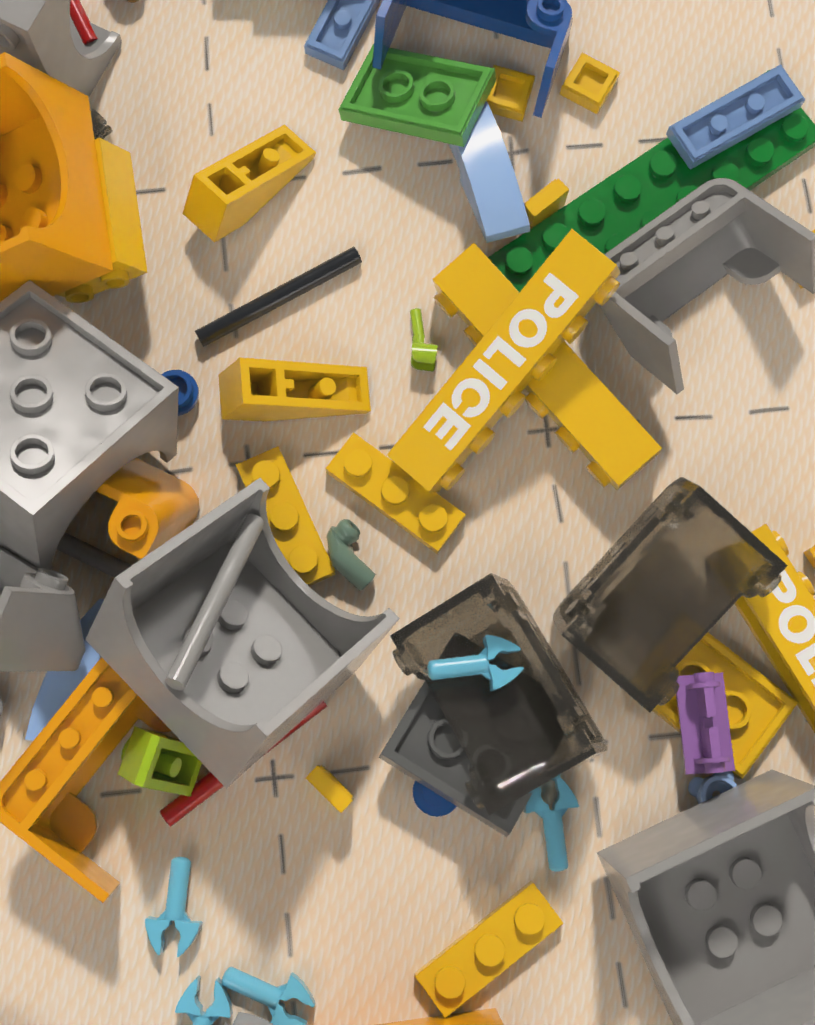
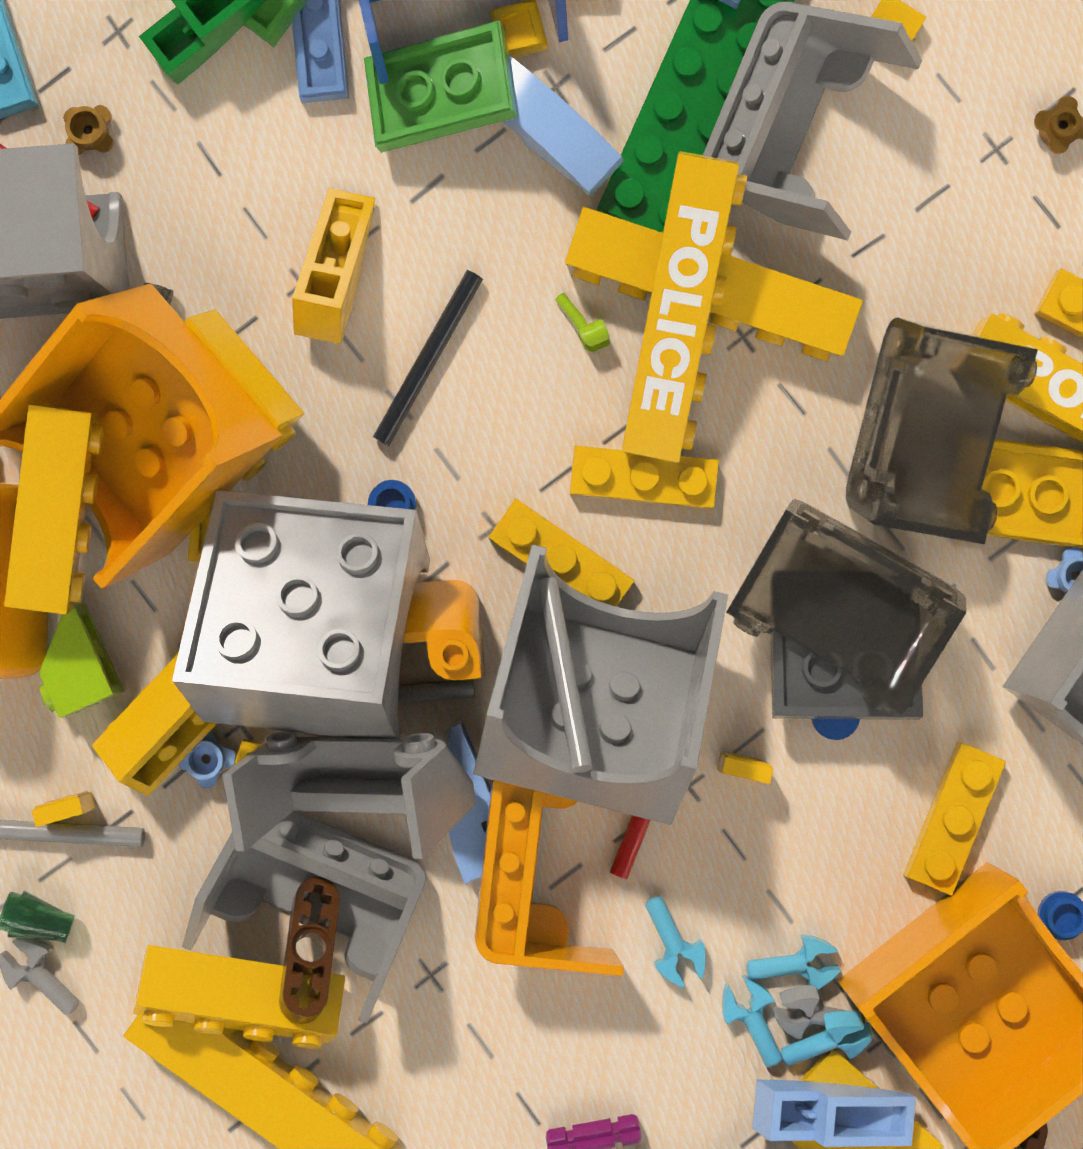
camera: 25 degrees left, 10 degrees up
(159, 762) = (587, 835): lime slope -> none
(291, 390) = (498, 440): yellow slope -> none
(343, 556) = (634, 563): sand green arm -> none
(478, 664) = (814, 590): medium azure bar -> none
(546, 202) = (621, 122): yellow tile -> none
(553, 822) = (952, 686): medium azure bar -> none
(704, 723) = (1034, 523): medium lavender hinge -> none

